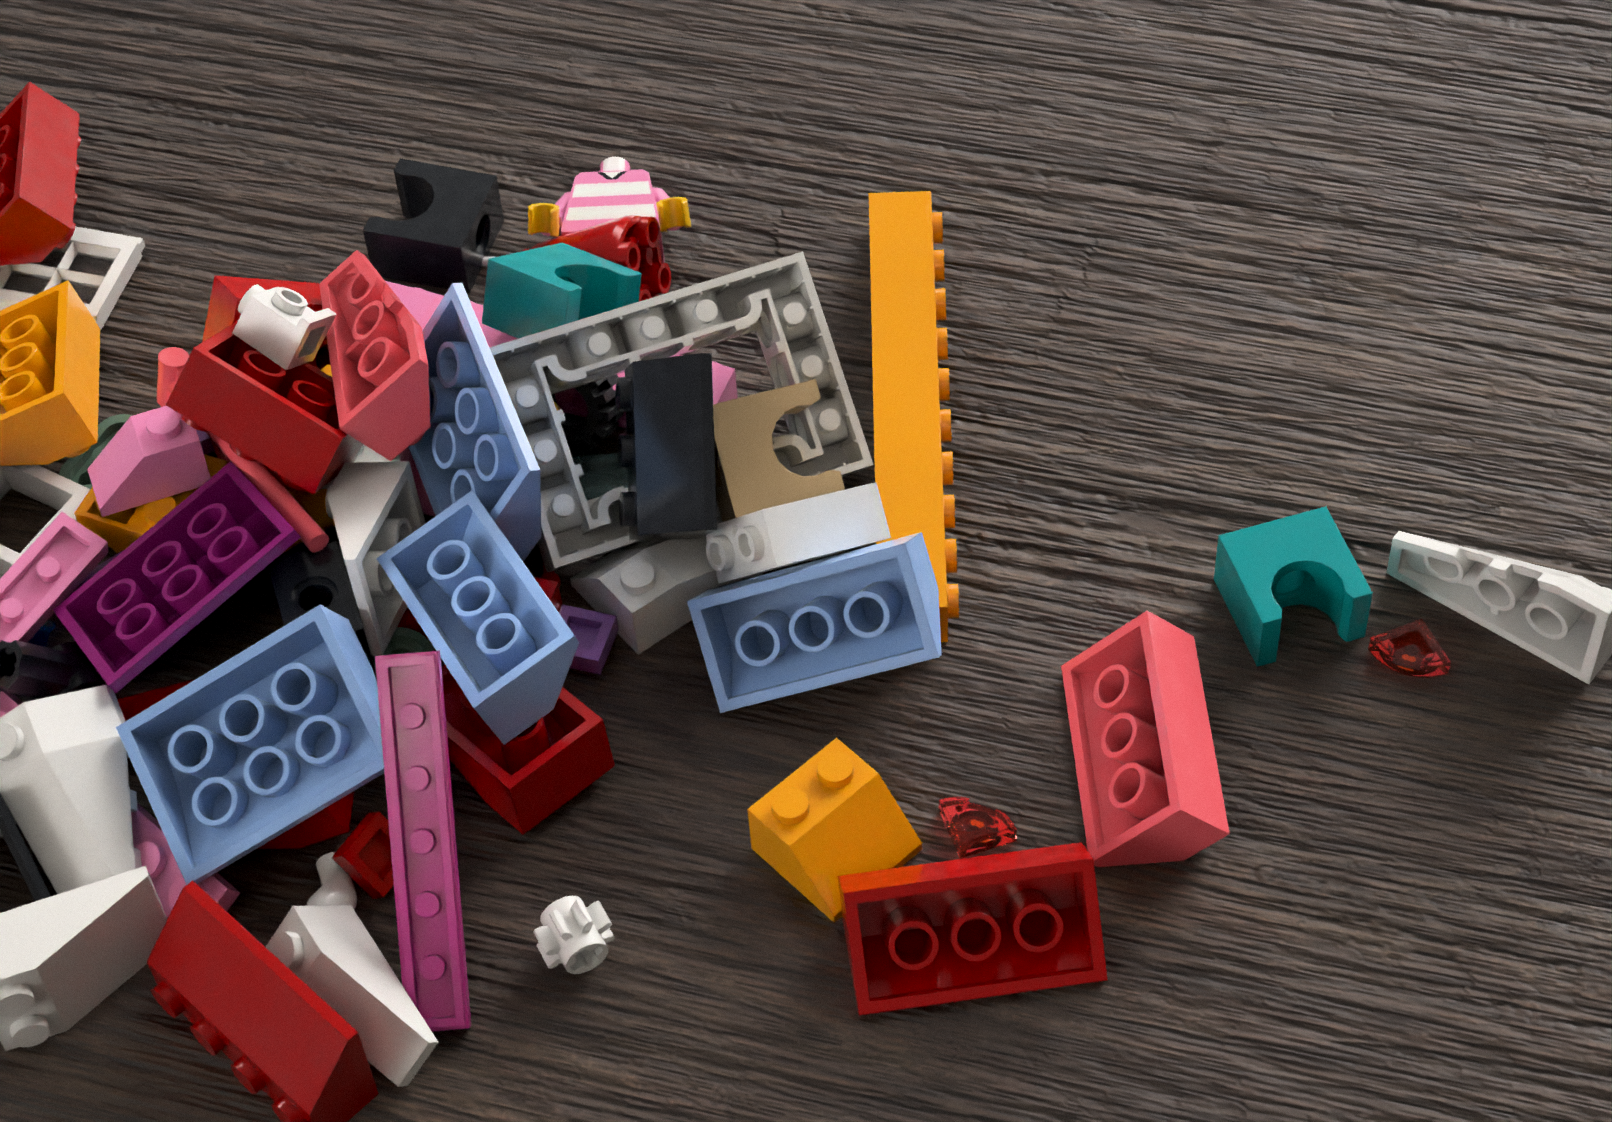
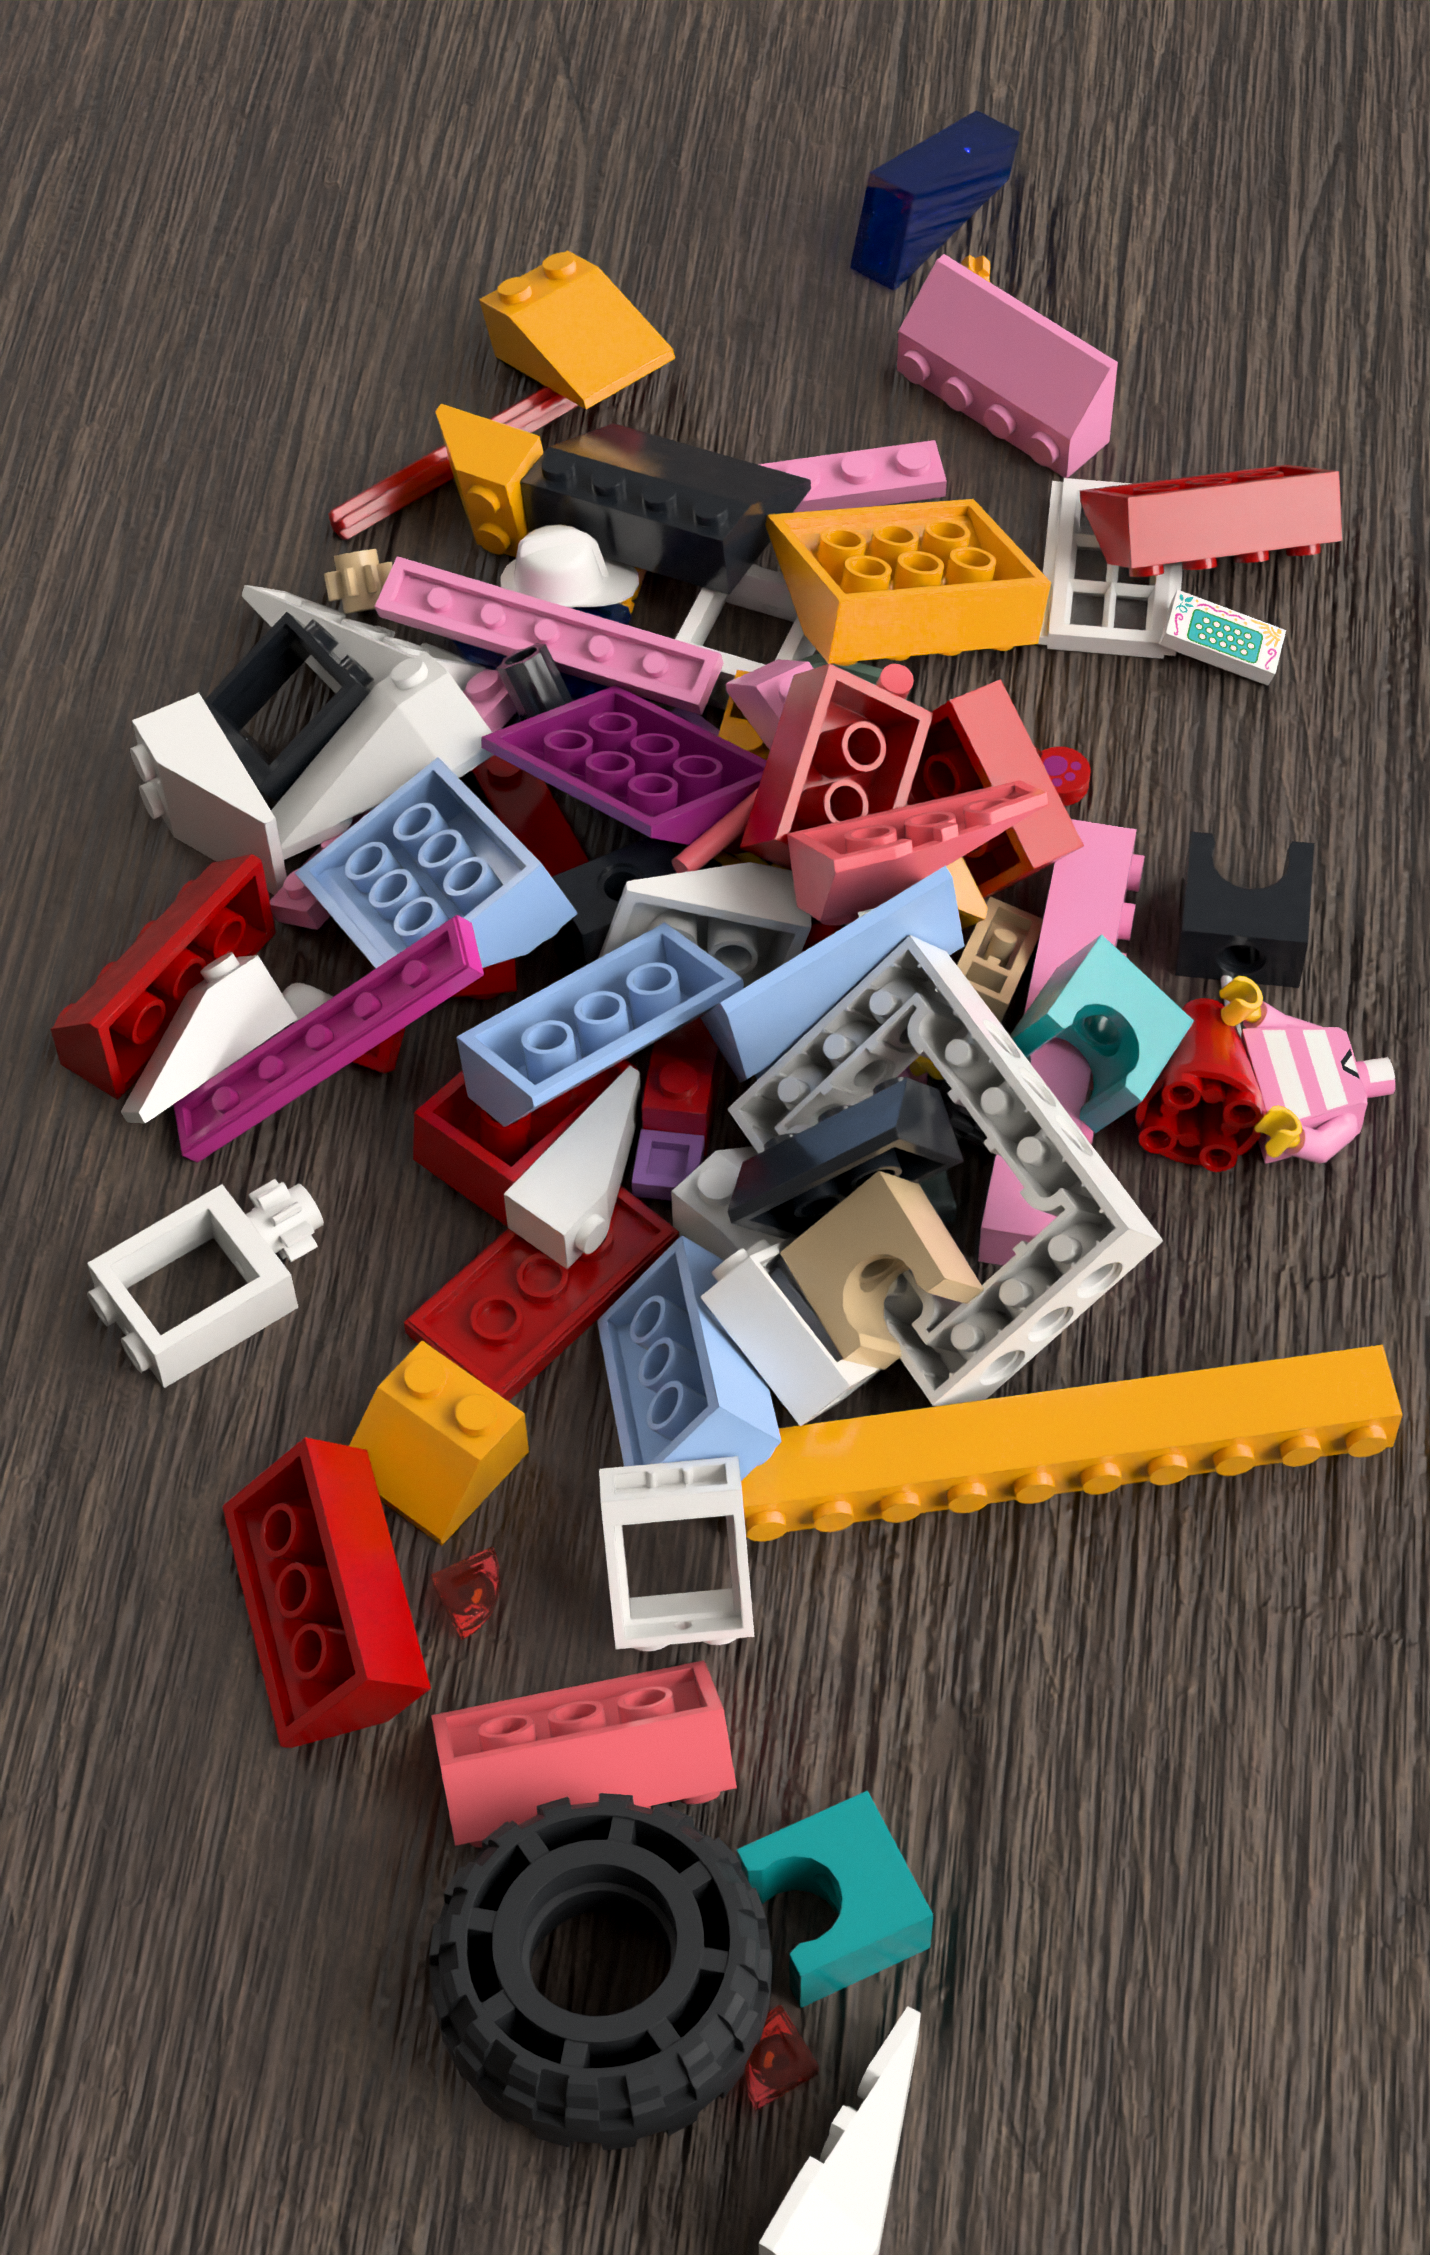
camera: 80 degrees right, 5 degrees up
(145, 206) = (1222, 637): none -> white tile
(282, 325) = (923, 749): white brick -> none
(607, 967) = (214, 1329): none -> white window
(622, 693) = (572, 1188): none -> white slope
(677, 750) = (522, 1308): none -> red tile
(965, 600) = (669, 1494): none -> white window
(1344, 791) = (619, 2071): none -> black tyre

